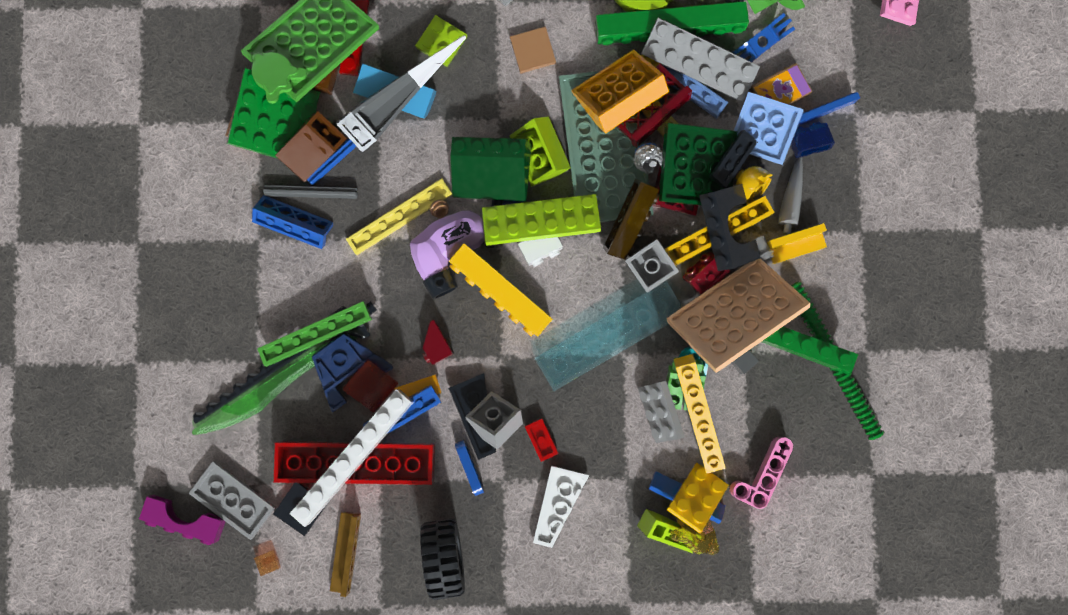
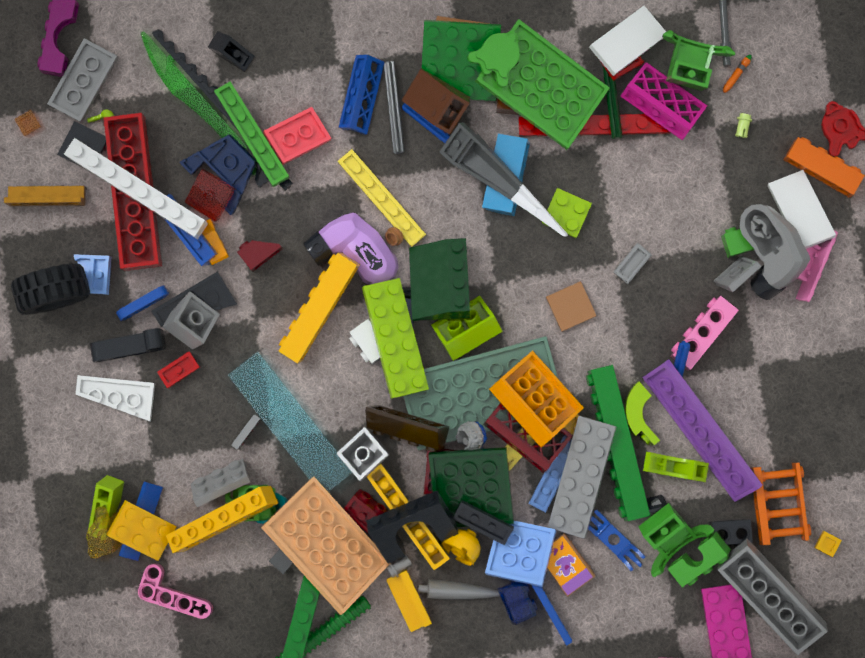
camera: 85 degrees right, 0 degrees up
(226, 345) = (231, 51): none -> black slope
(269, 481) = (105, 113): none -> lime hand
(323, 289) = (297, 135): none -> coral plate
(430, 509) = (97, 272): none -> light blue wing
(510, 488) = (126, 346): none -> black beam
(615, 382) = (246, 432): none -> light grey tile

